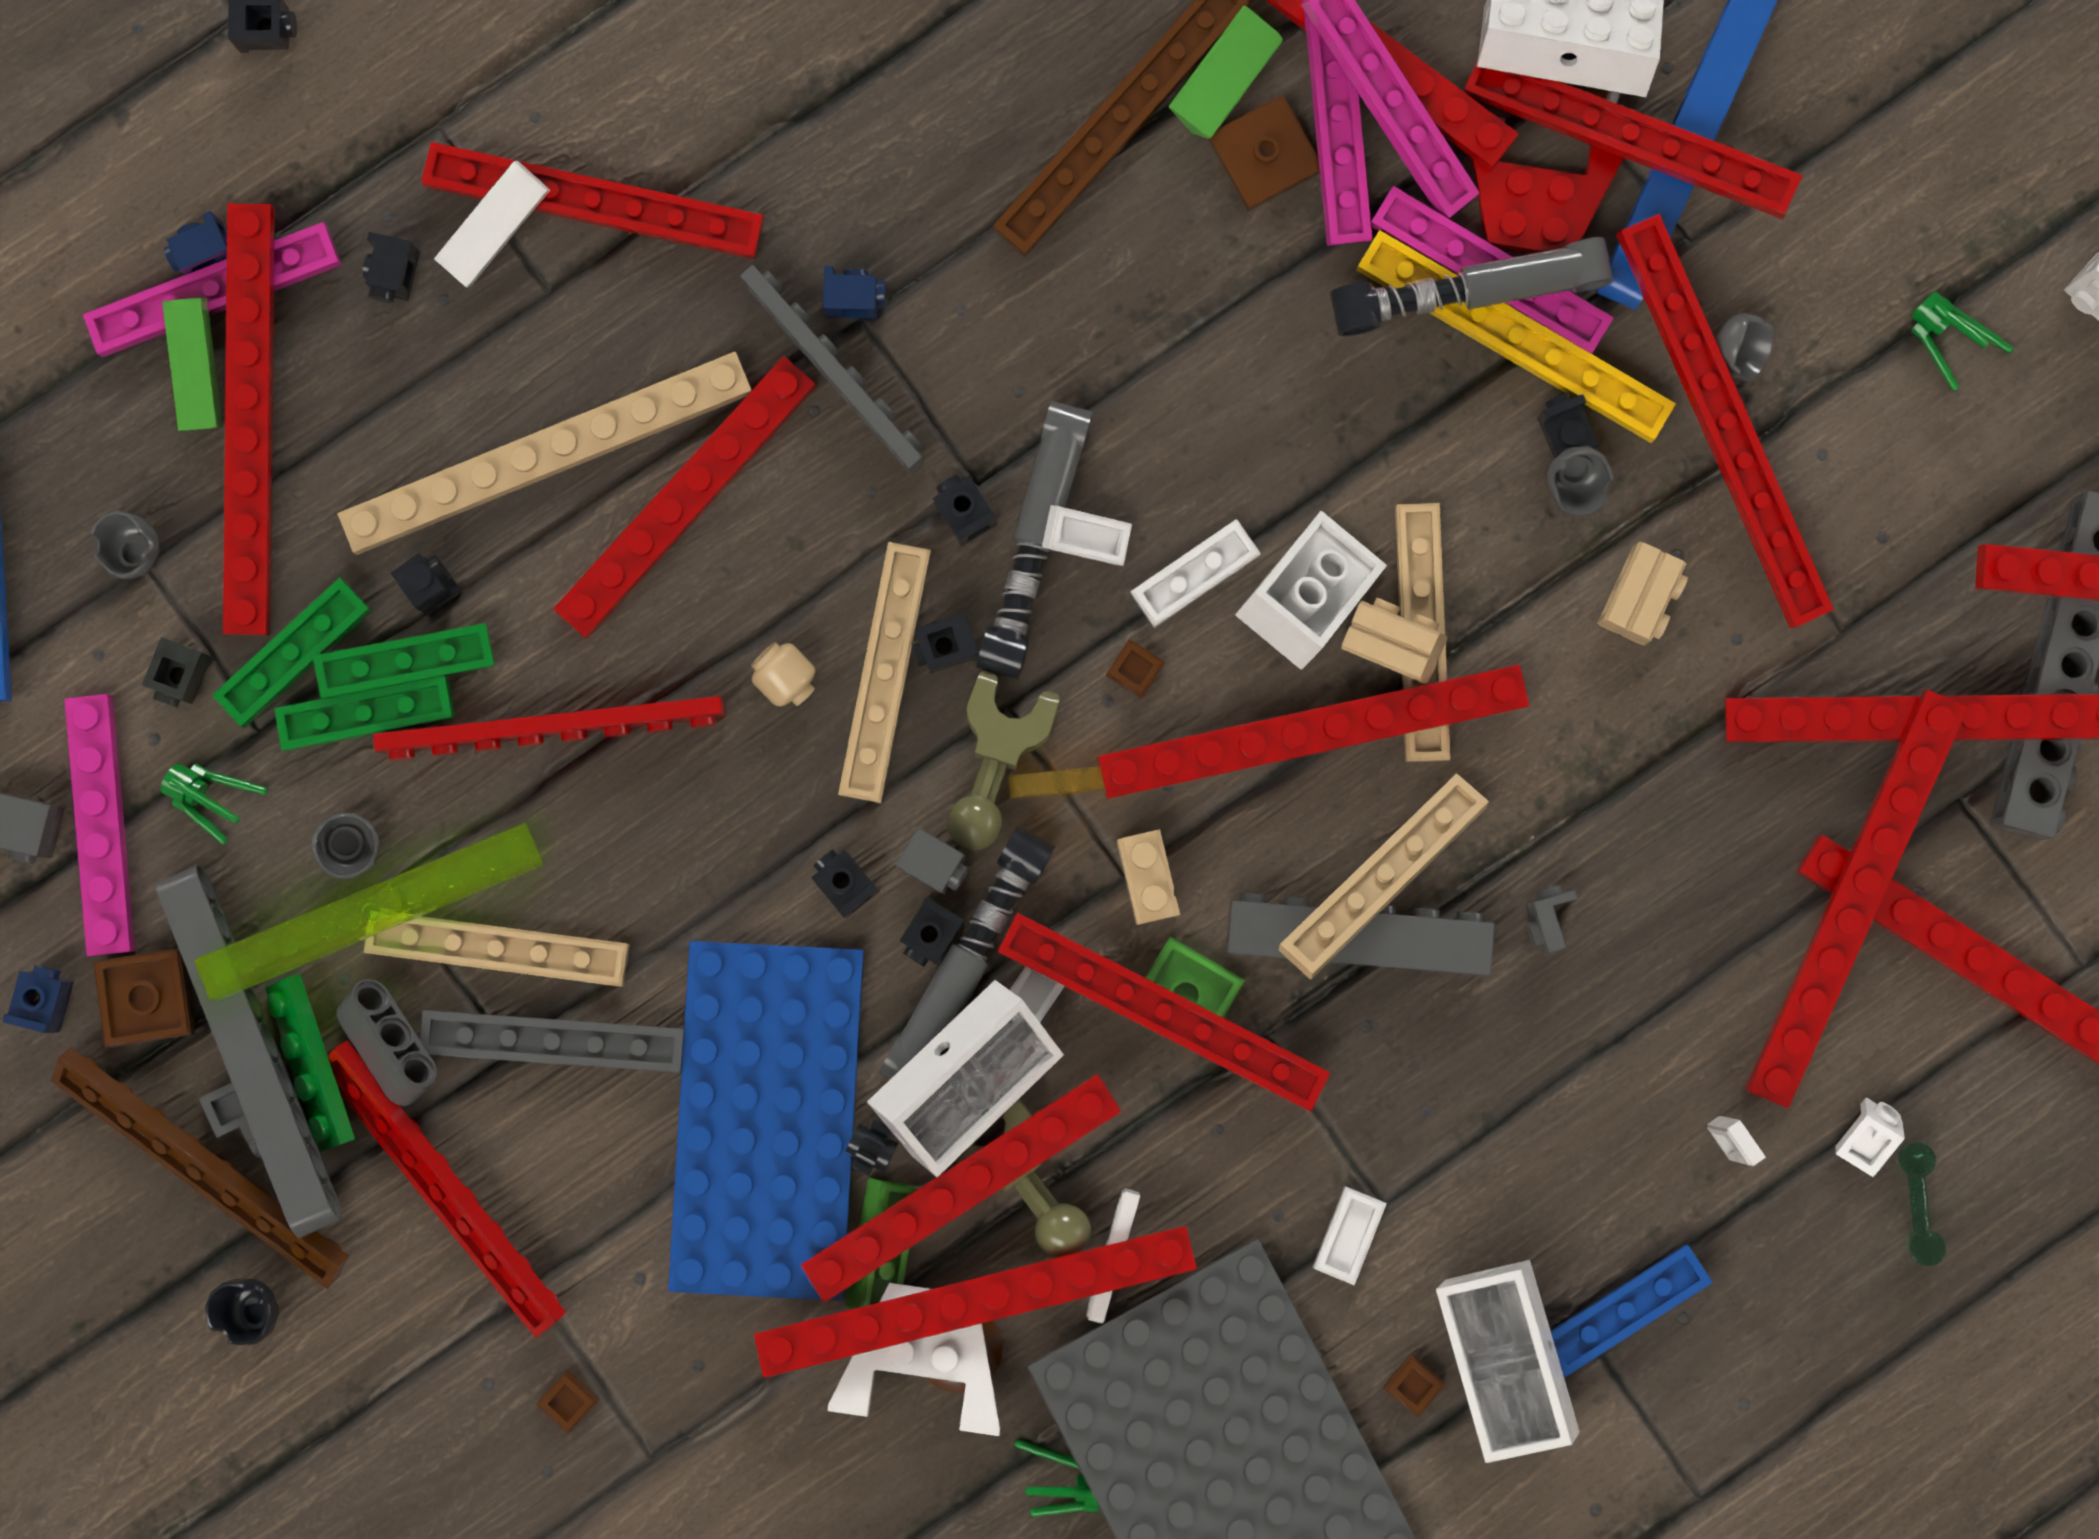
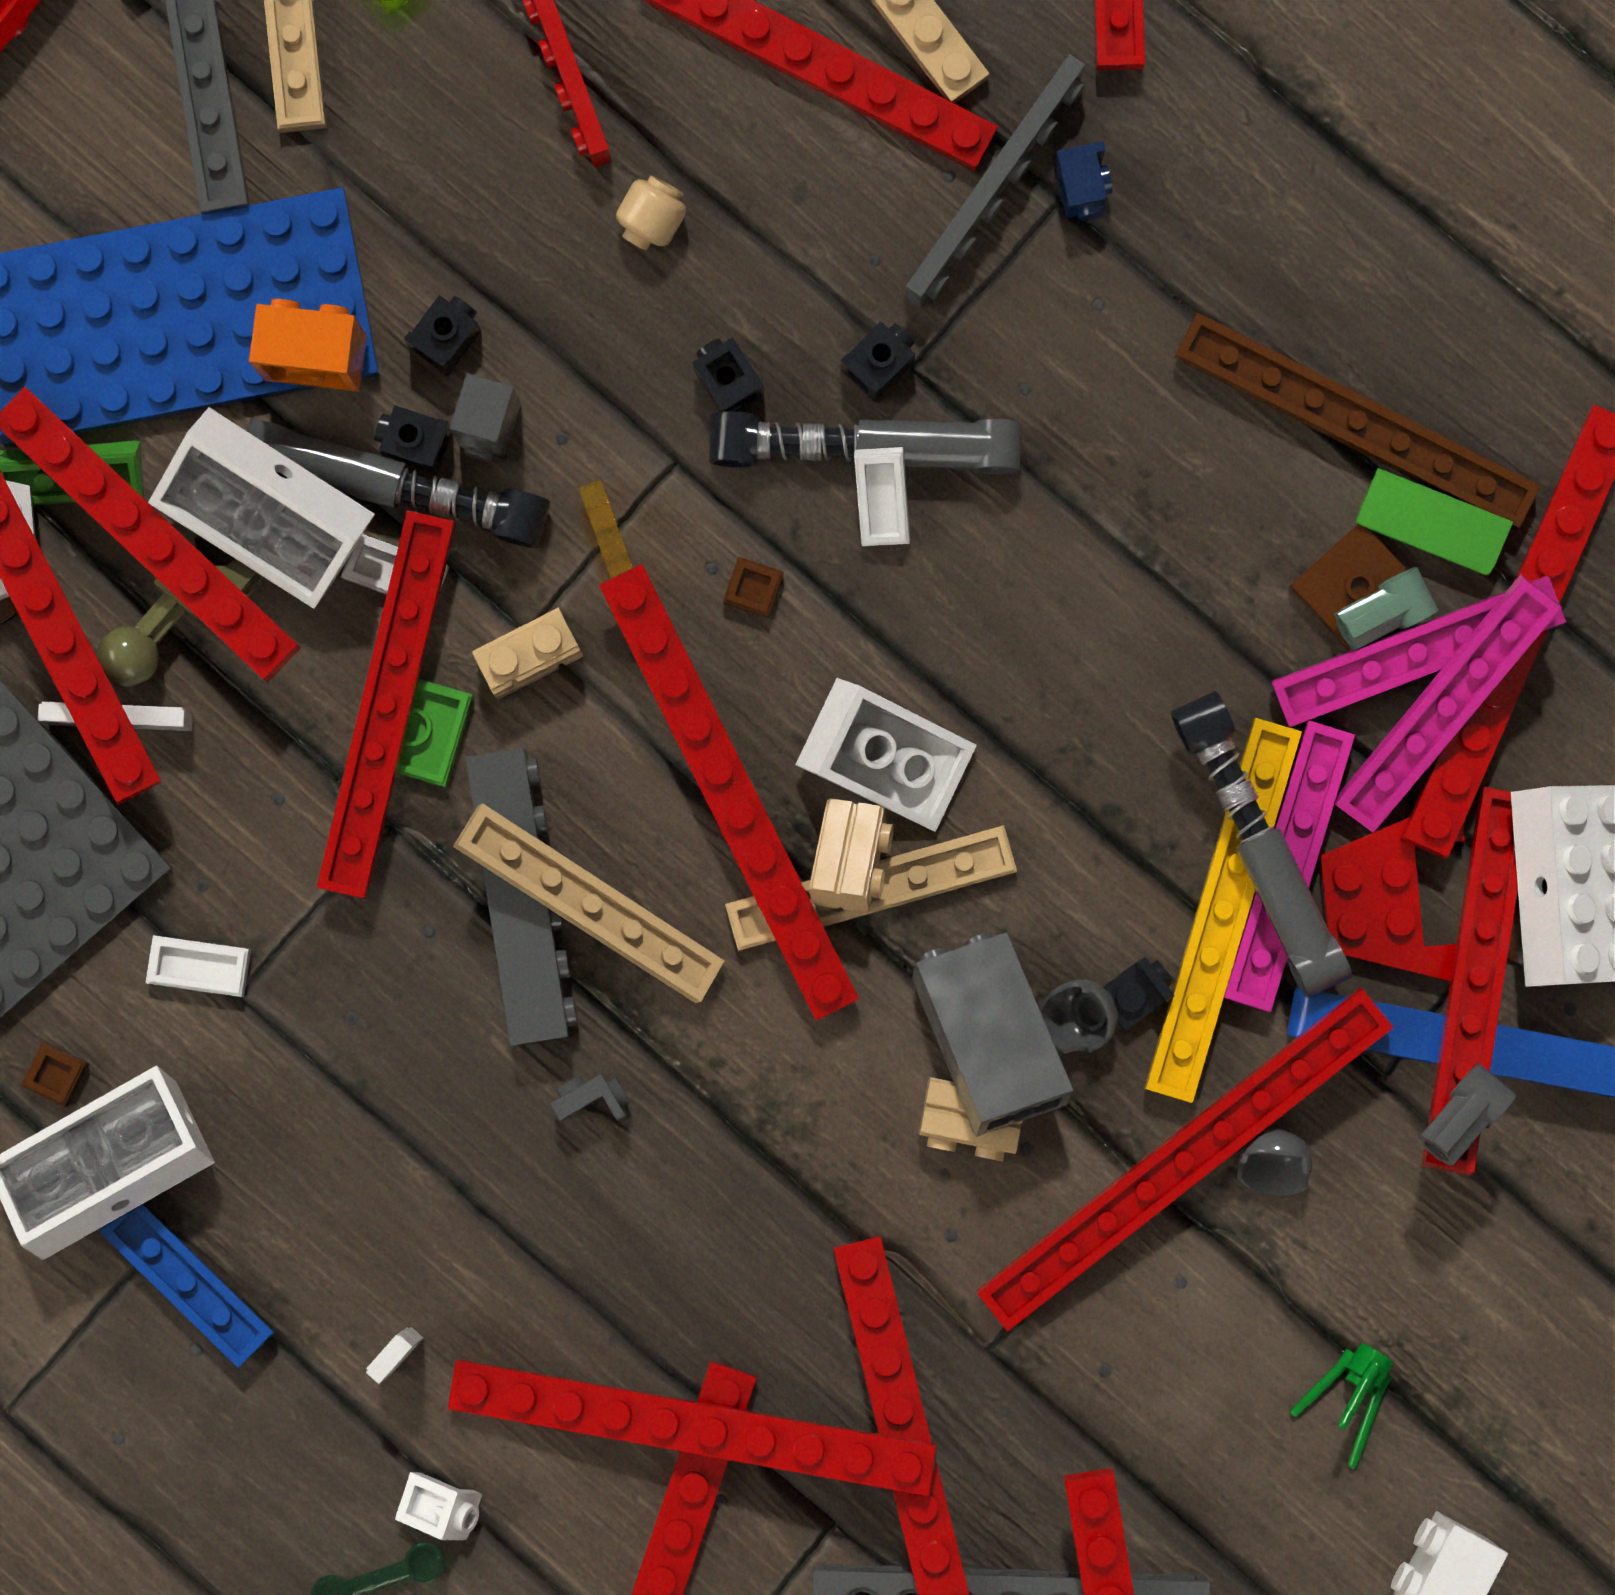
camera: 75 degrees right, 0 degrees up
(832, 1001) = (308, 345): none -> orange brick
(871, 1148) = (164, 430): black gear -> none
(884, 672) = (682, 321): tan tile -> none
(1001, 743) = (544, 455): olive piece -> none
(1195, 573) = (873, 626): white tile -> none
(1292, 118) = (1396, 604): none -> sand green piece
(1578, 557) = (991, 1033): none -> dark grey brick
(1748, 159) = (1473, 1106): none -> dark grey piece

